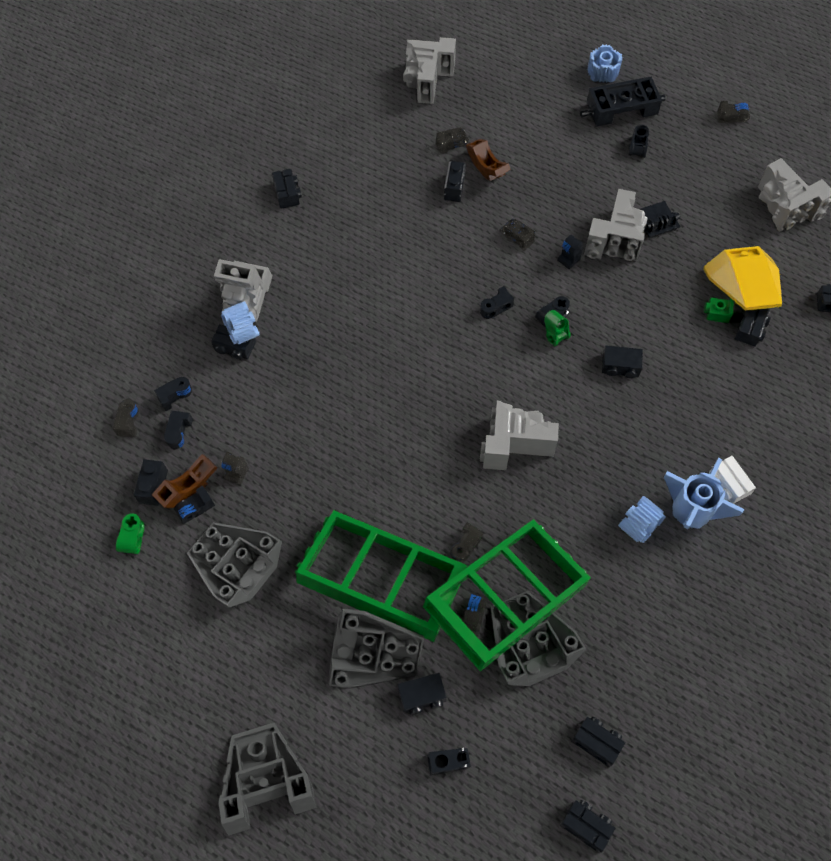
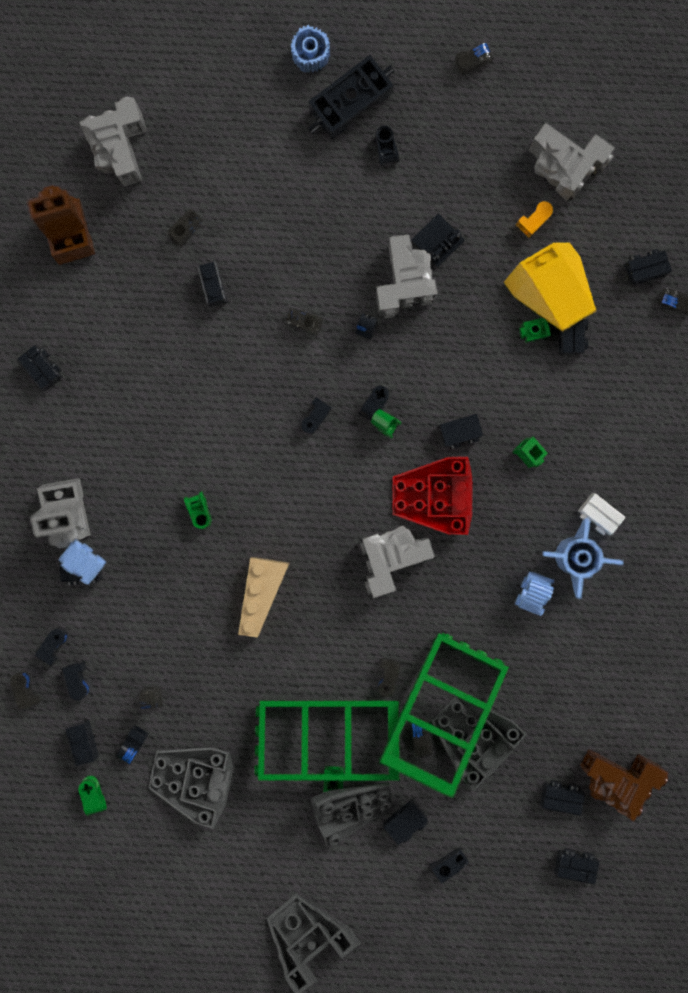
camera: 25 degrees left, 25 degrees up
(183, 487) = (114, 733): reddish brown arch -> none
(358, 96) = (63, 224): none -> reddish brown brick
(359, 335) = (198, 509): none -> green piece
(379, 422) = (261, 589): none -> tan wedge
(485, 160) = (234, 243): reddish brown arch -> none
(580, 402) = (436, 495): none -> red wedge
(669, 749) = (622, 787): none -> reddish brown brick
(681, 402) = (536, 454): none -> green brick
(747, 232) = (536, 220): none -> light orange leg

